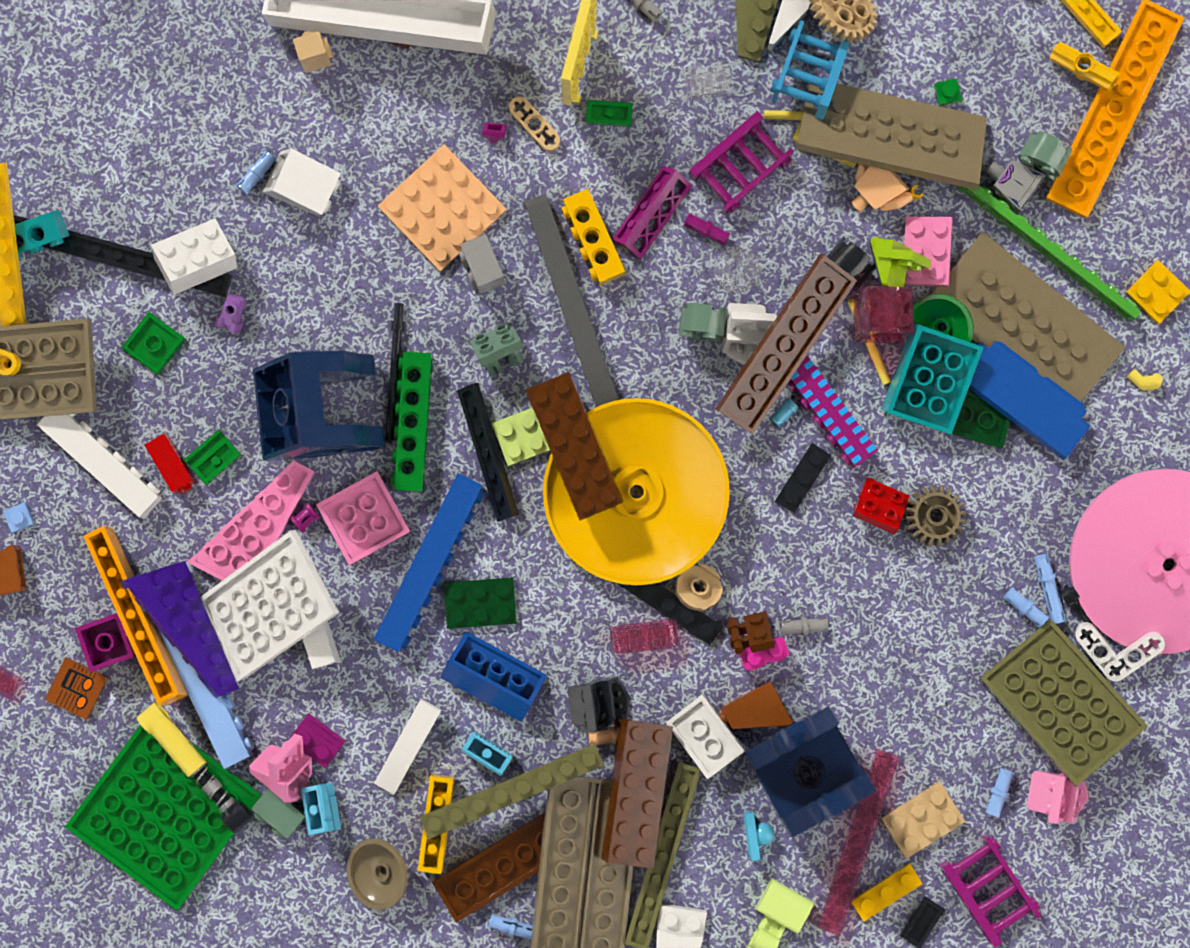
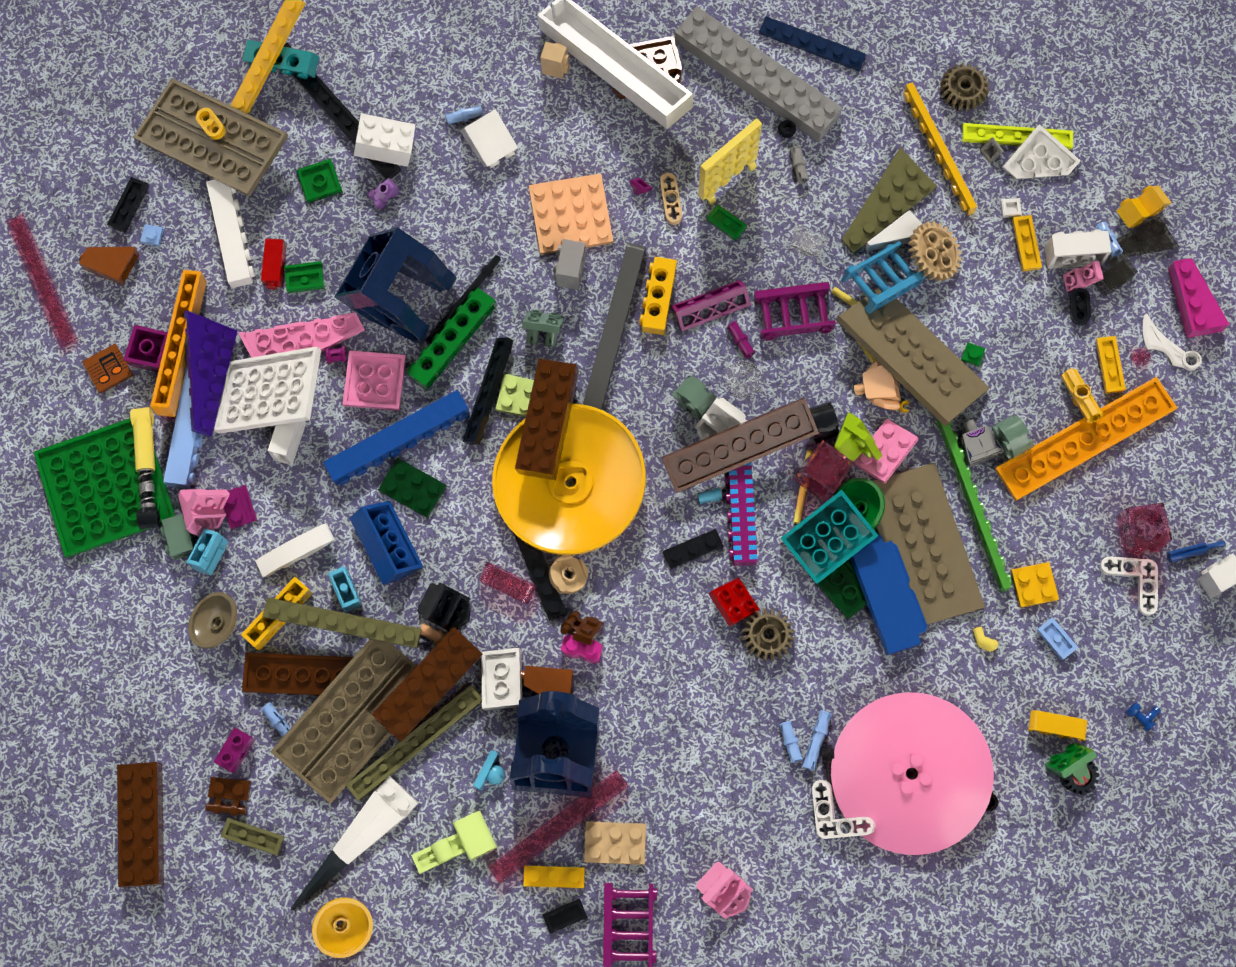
camera: 40 degrees right, 10 degrees down
(804, 626) = (623, 650): light grey pin -> none
(1000, 792) = (683, 860): light blue pin -> none
(1063, 703) = (771, 824): olive plate -> none

